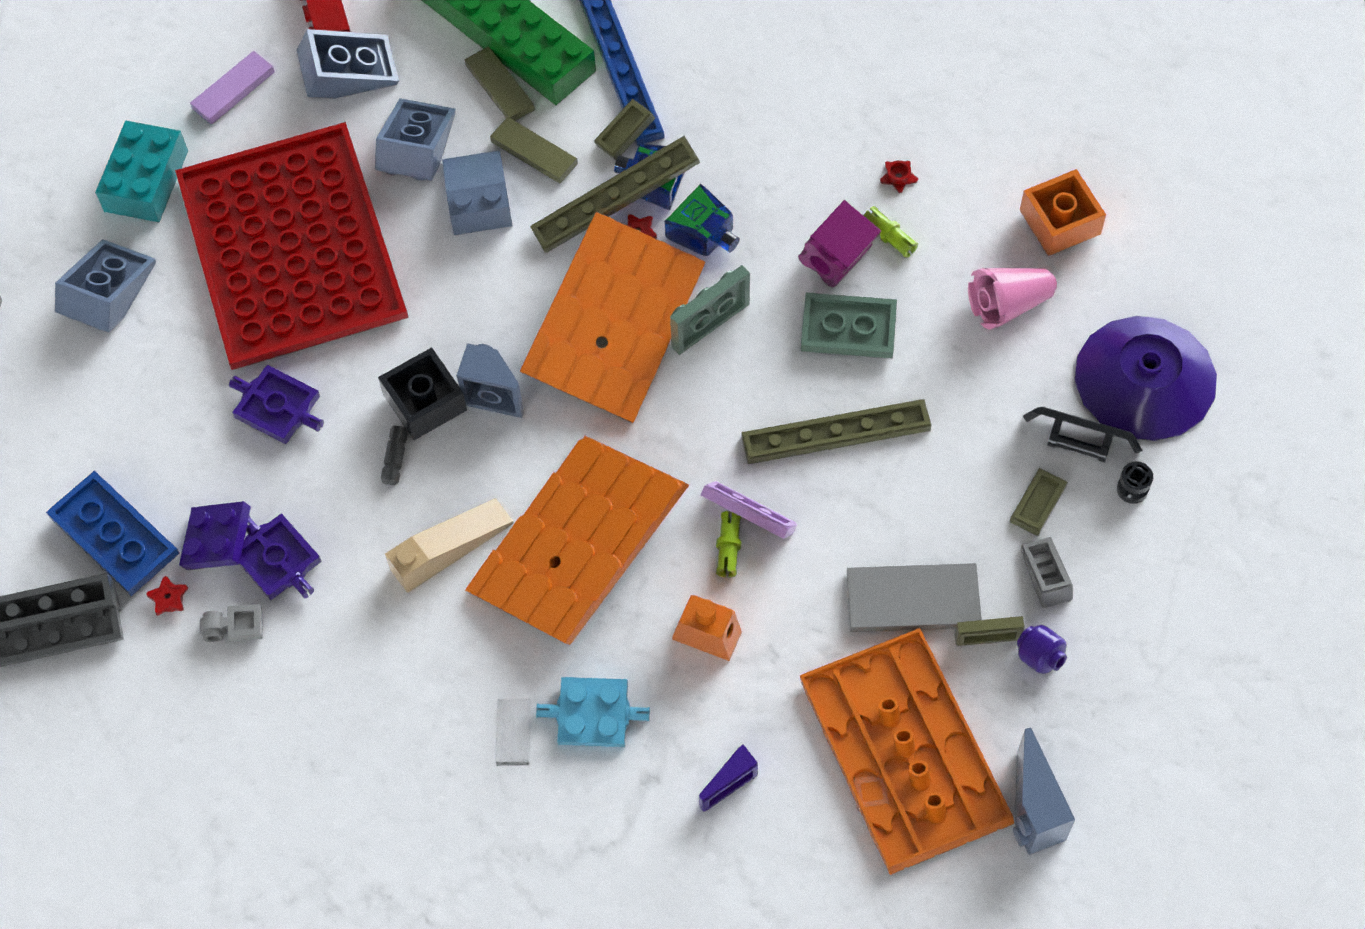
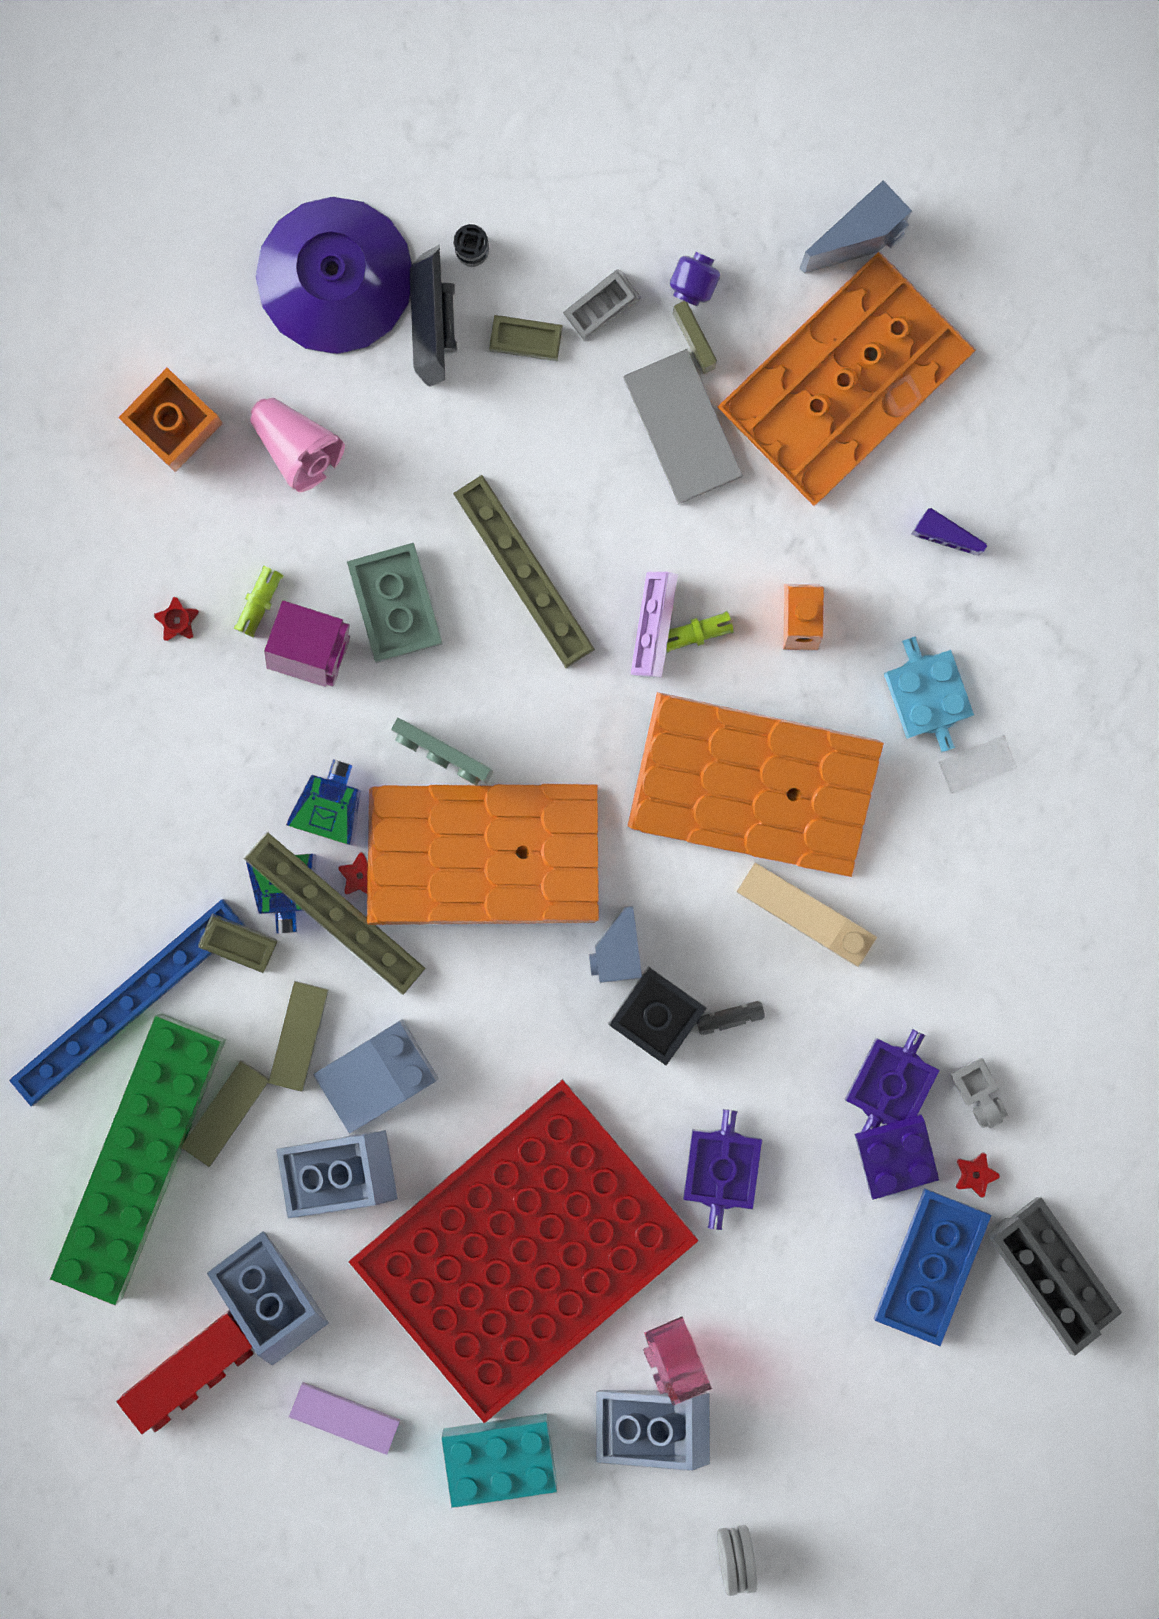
camera: 110 degrees left, 25 degrees up
(144, 309) = (677, 1361): none -> clear pink brick

